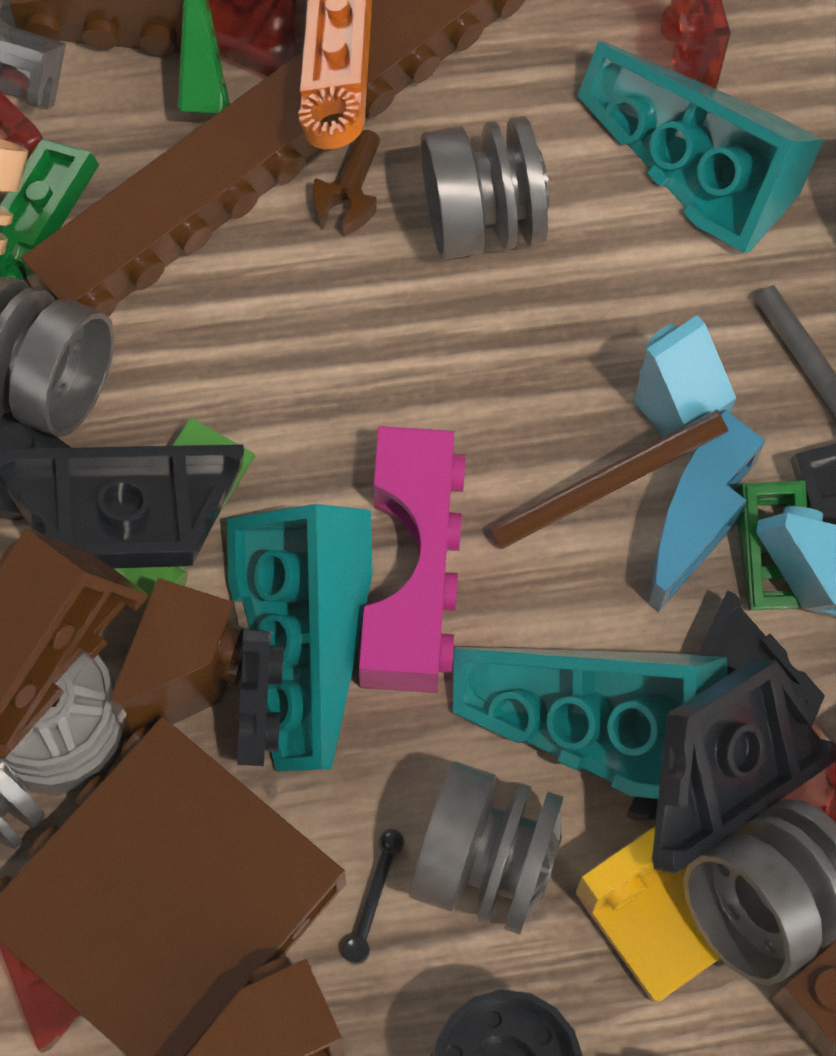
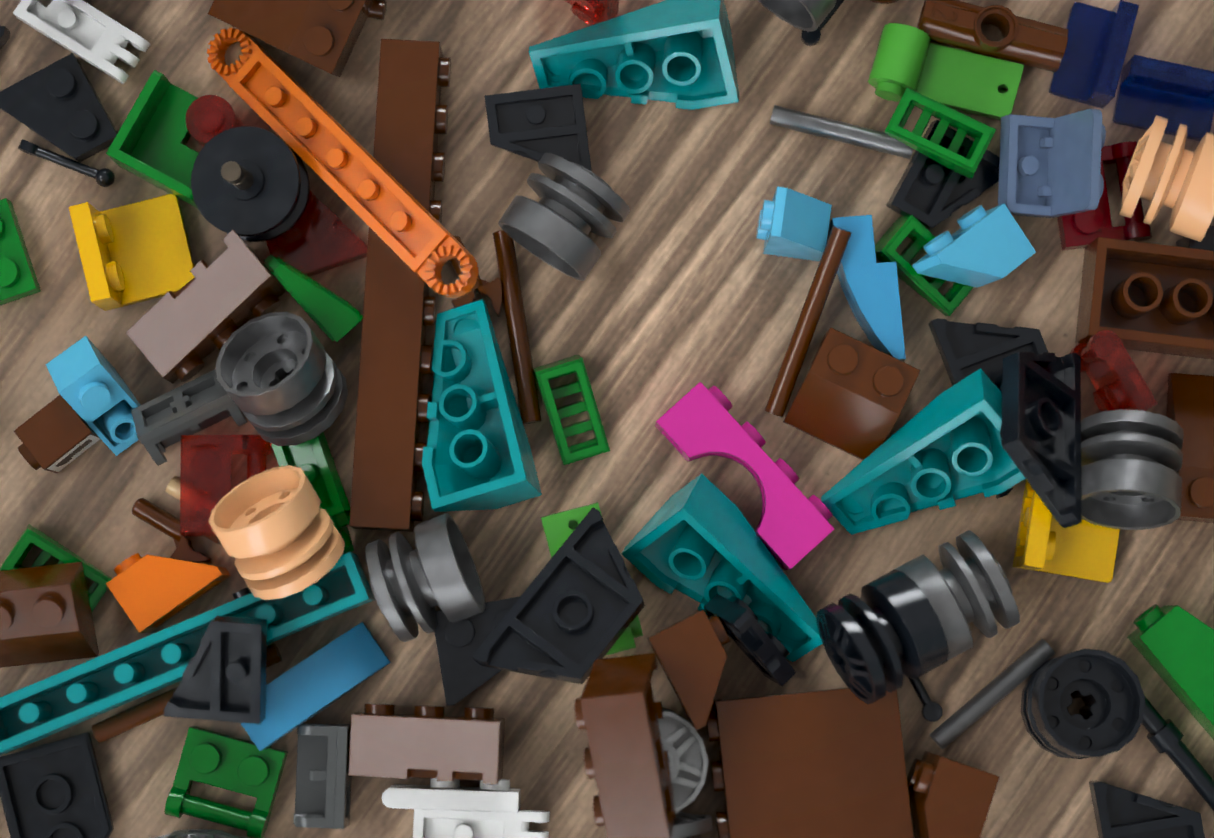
camera: 45 degrees left, 15 degrees up
(100, 87) = (282, 378): none -> flat silver wheel
(215, 298) = (475, 432): none -> teal wedge
(341, 316) = (562, 368): none -> green slope
(346, 256) = (517, 328): none -> reddish brown bar
(374, 800) = (882, 636): none -> black wheel
(407, 988) = (992, 694): none -> flat silver bar
(560, 109) = (540, 123): none -> black wing
(584, 581) = (851, 395): none -> reddish brown slope

